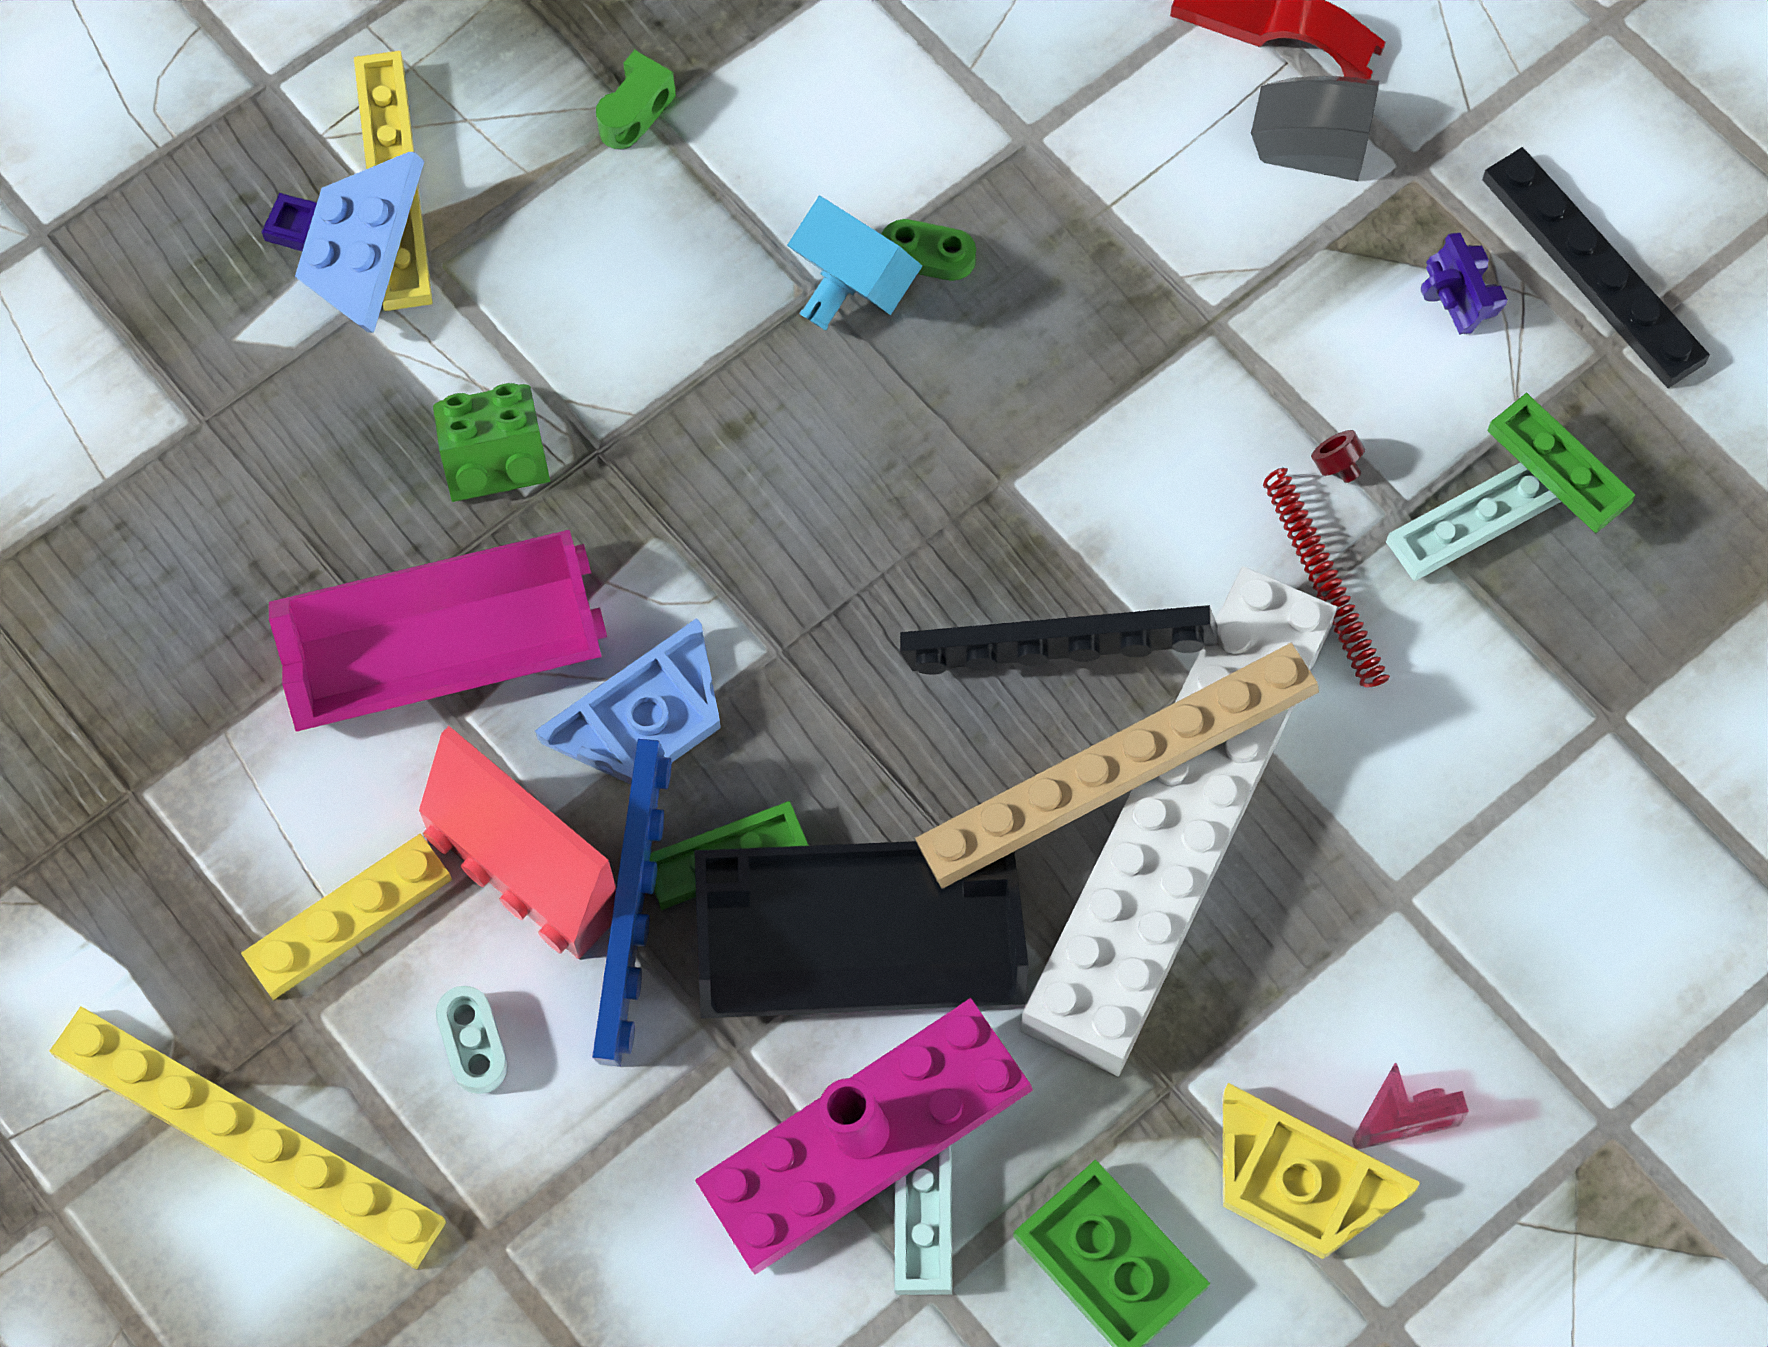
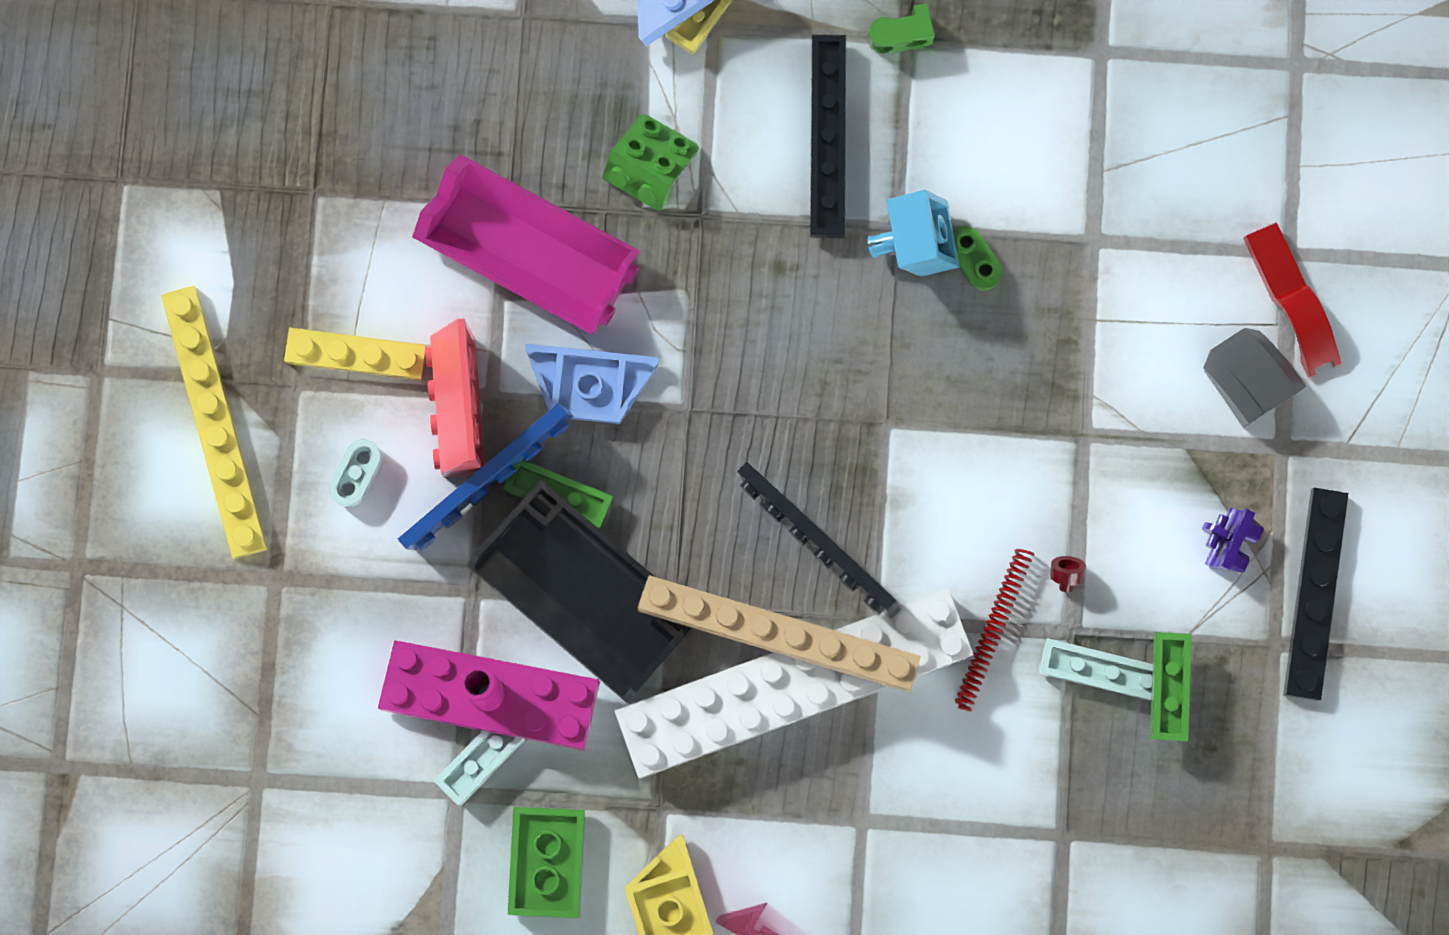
camera: 45 degrees right, 15 degrees up
(658, 260) = (828, 136): none -> black plate

